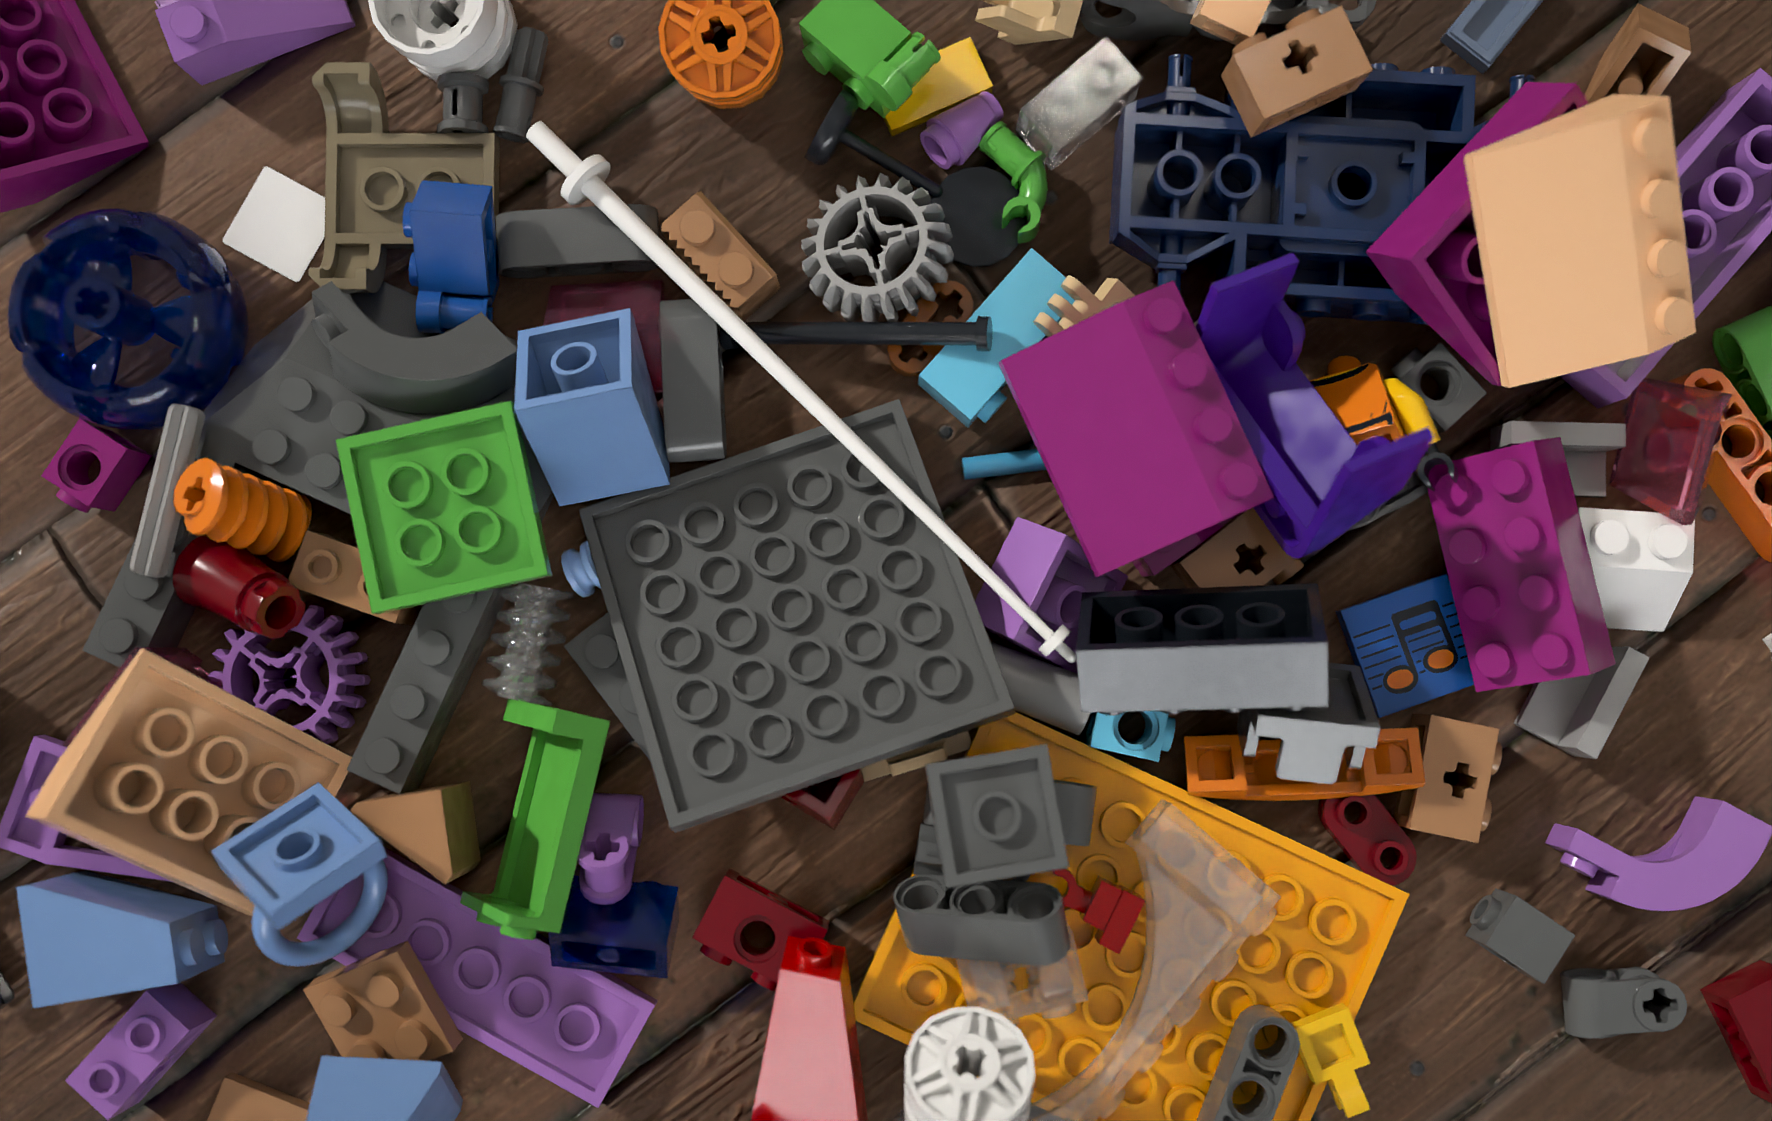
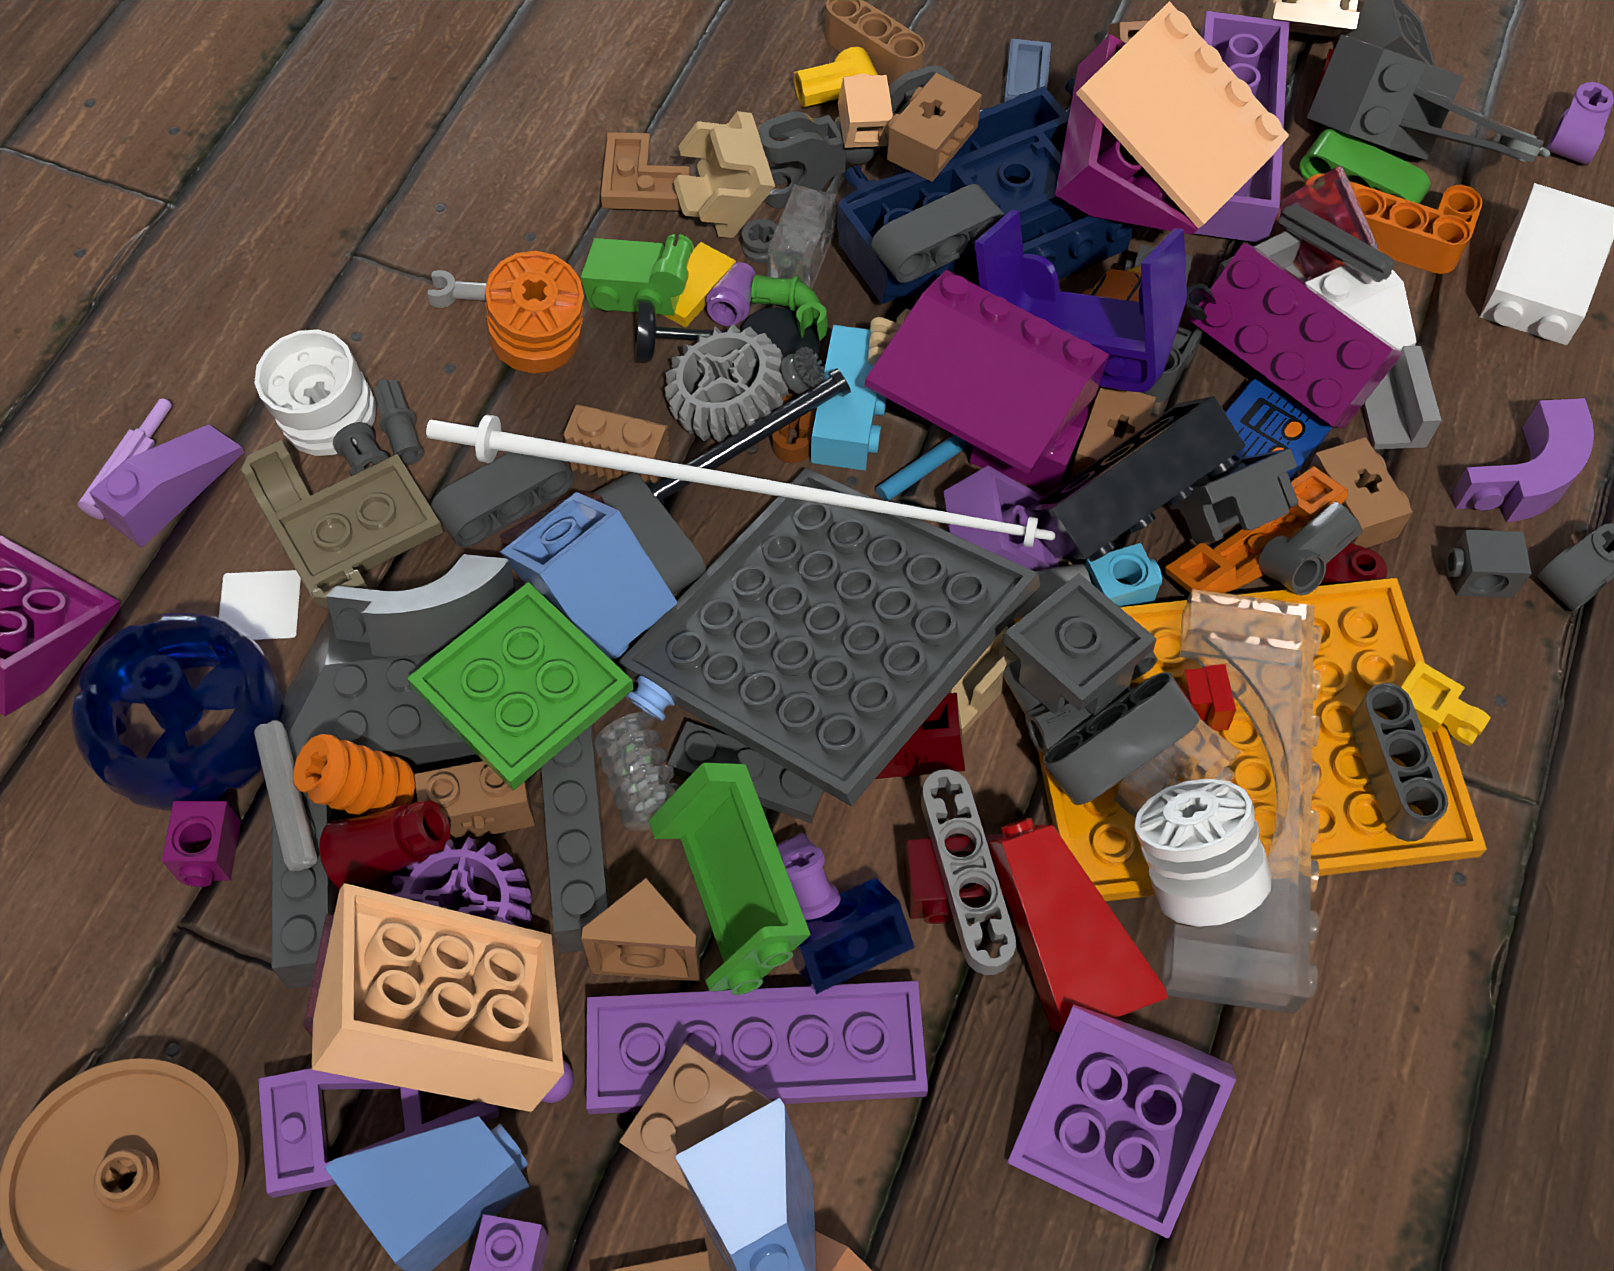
camera: 30 degrees left, 25 degrees down
(296, 862) = (565, 985): medium blue tile -> none
(452, 253) = (415, 528): blue hinge -> none
(759, 947) = (970, 869): none -> light grey beam
(968, 292) = (802, 370): none -> dark grey bush
(1040, 52) = (757, 229): none -> dark grey bush
(1202, 224) = (936, 233): none -> dark grey beam
(1321, 821) = (1302, 560): none -> dark grey piece
(1652, 485) = (1336, 242): none -> dark grey axle

